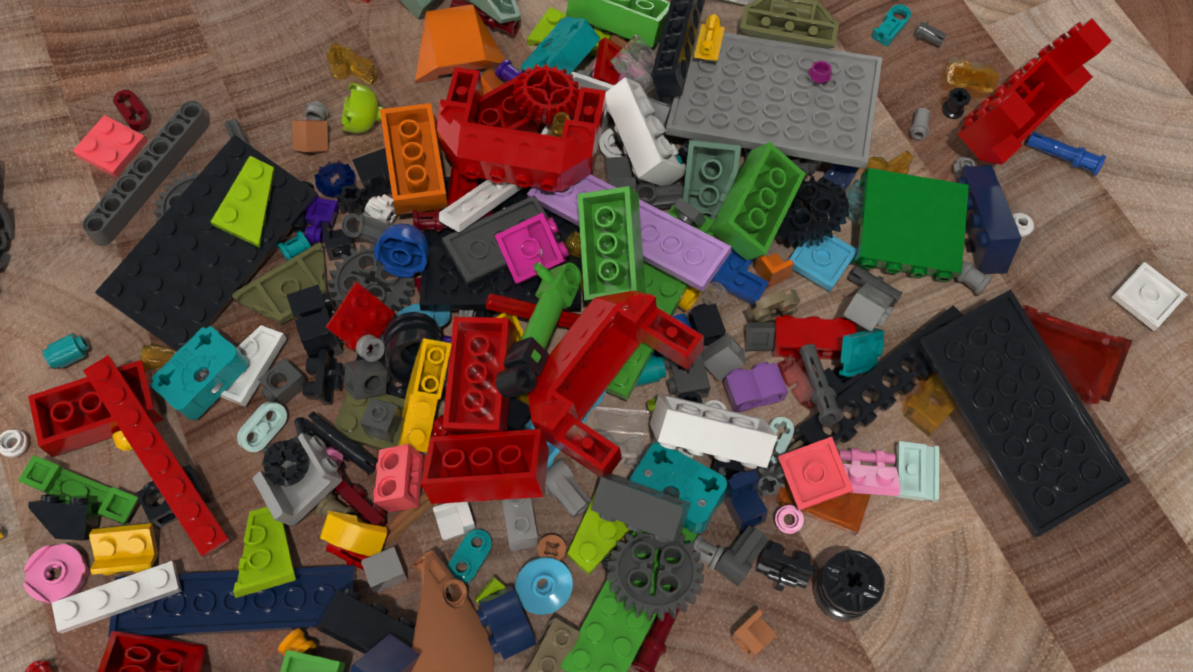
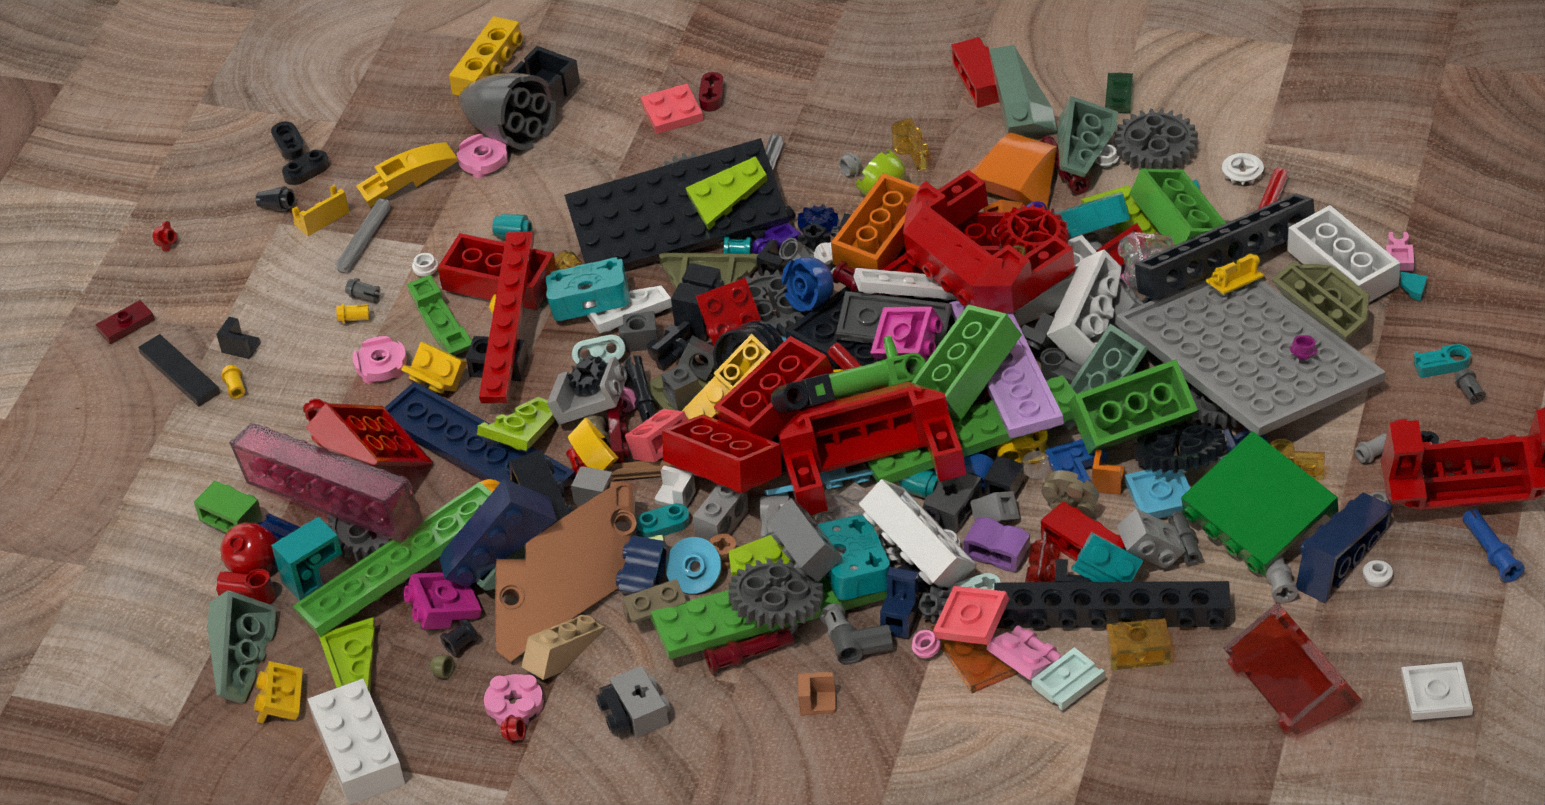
camera: 50 degrees right, 20 degrees down
(66, 518) = (416, 326): black slope -> none
(116, 597) = (404, 391): white plate -> none
(146, 173) = (679, 138): dark grey beam -> none
(309, 135) = (827, 177): nougat panel -> none
(364, 342) = (719, 326): light grey bush -> none
(689, 214) = (1057, 379): dark grey plate -> none
(759, 336) = (1037, 509): dark grey plate -> none
(783, 569) = (884, 669): black hips -> none
(822, 392) = (1036, 568): dark grey pin -> none
(834, 594) = (918, 704): black wheel -> none
(963, 73) = (1458, 425): clear yellow brick -> none
(1023, 413) = (1195, 682): black plate -> none

